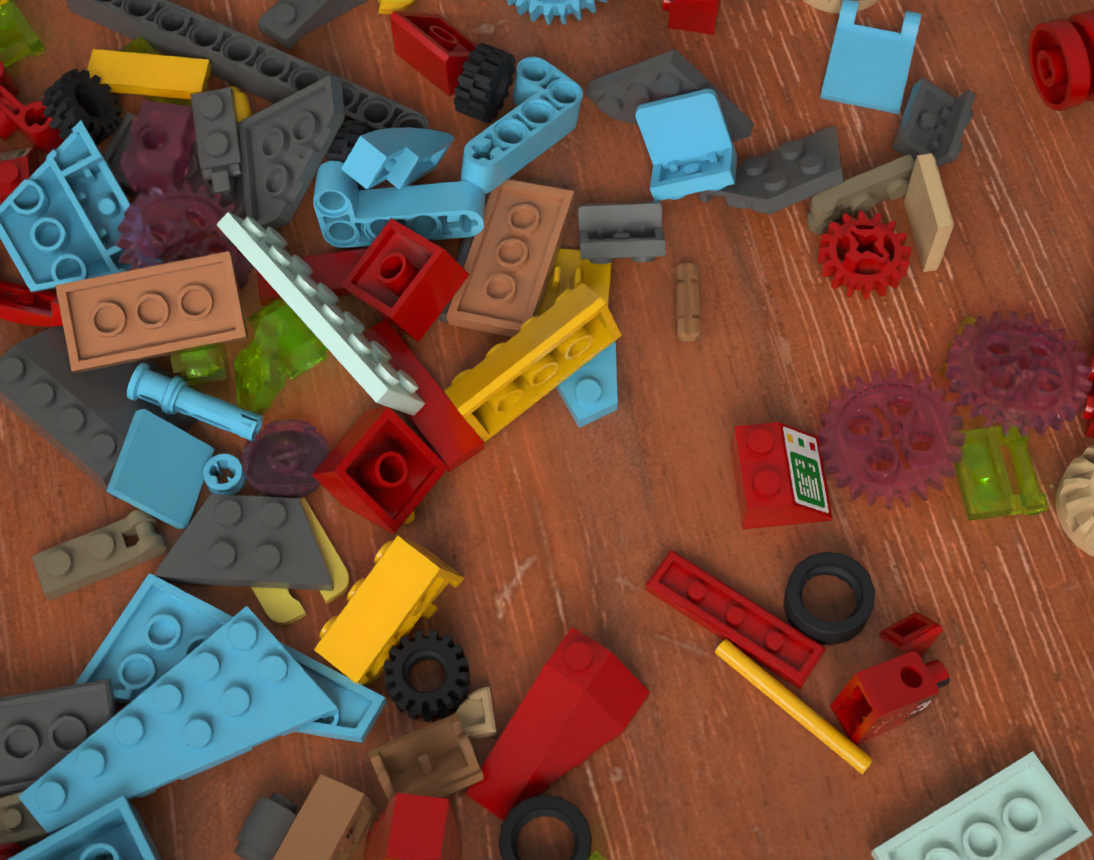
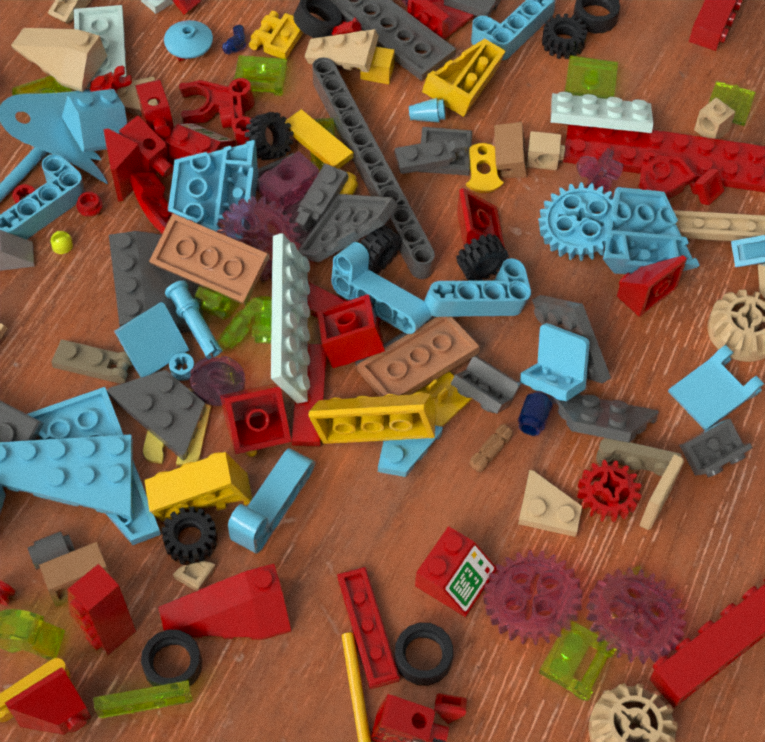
camera: 35 degrees right, 5 degrees down
(396, 155) = (398, 263): medium azure slope -> none
(427, 761) = (149, 576): medium nougat hinge -> none
(491, 555) = (255, 523): none -> medium azure beam
(704, 226) = (534, 413): none -> clear blue brick
(810, 323) = (548, 507): none -> tan wing

